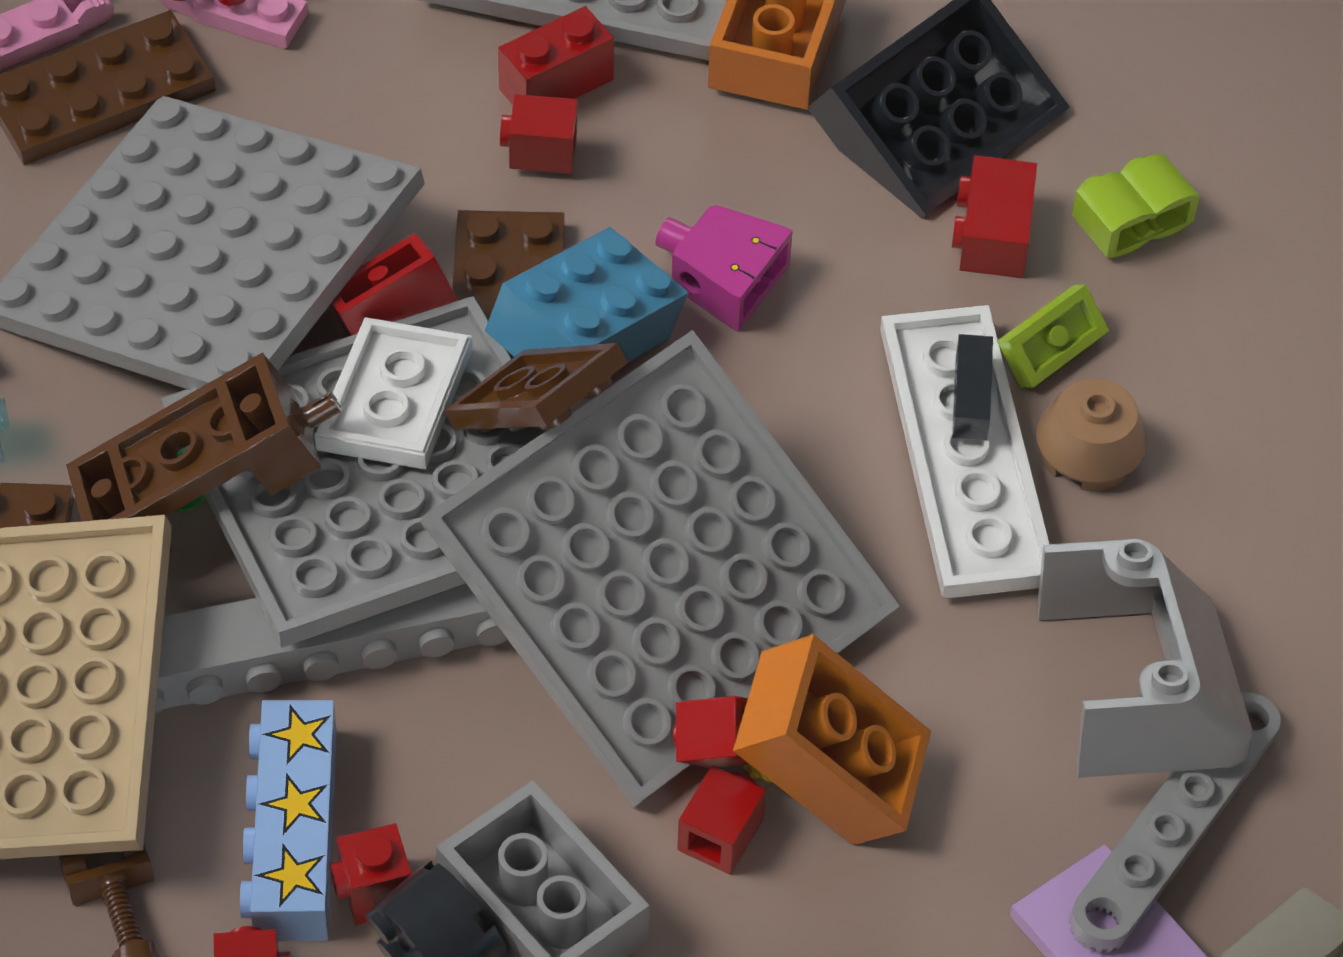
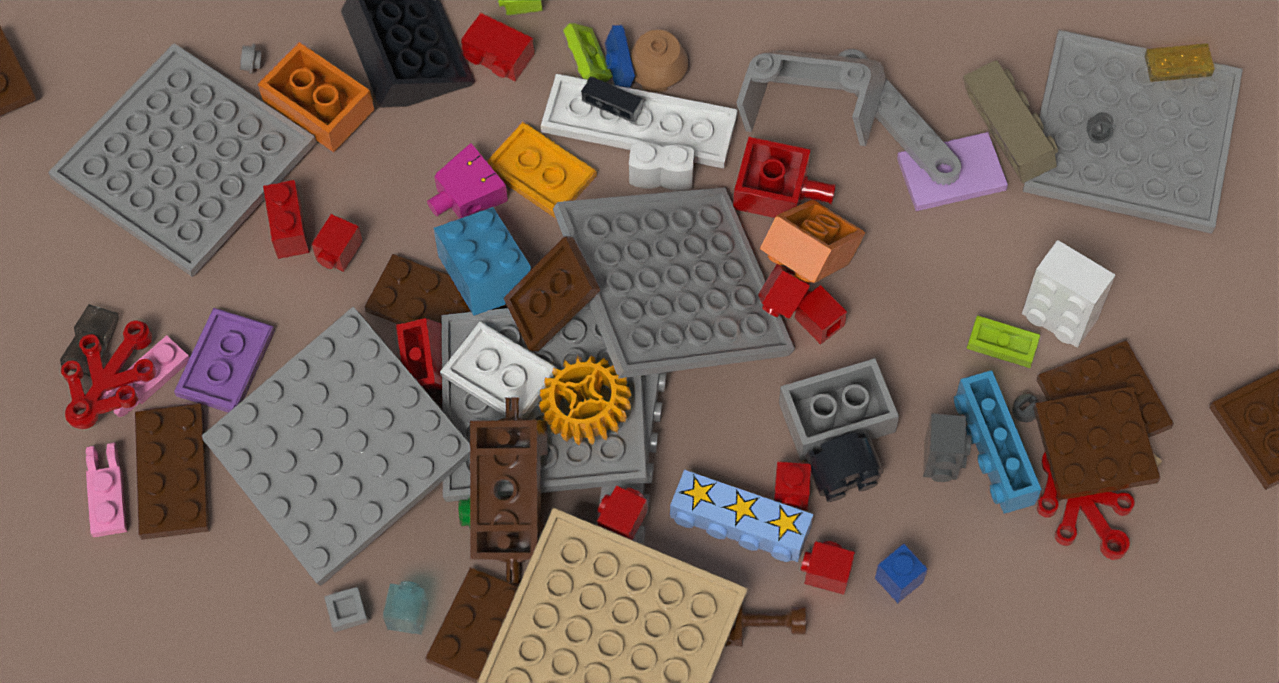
camera: 65 degrees left, 10 degrees up
(206, 628) = (622, 511): none -> red brick
(301, 82) = (224, 360): none -> medium lavender tile
(370, 501) = (582, 382): none -> light orange gear
(810, 351) = (540, 169): none -> light orange tile
(890, 501) = (661, 166): none -> white brick
(945, 665) = (776, 179): none -> red brick
(1060, 373) = (619, 57): none -> blue plate

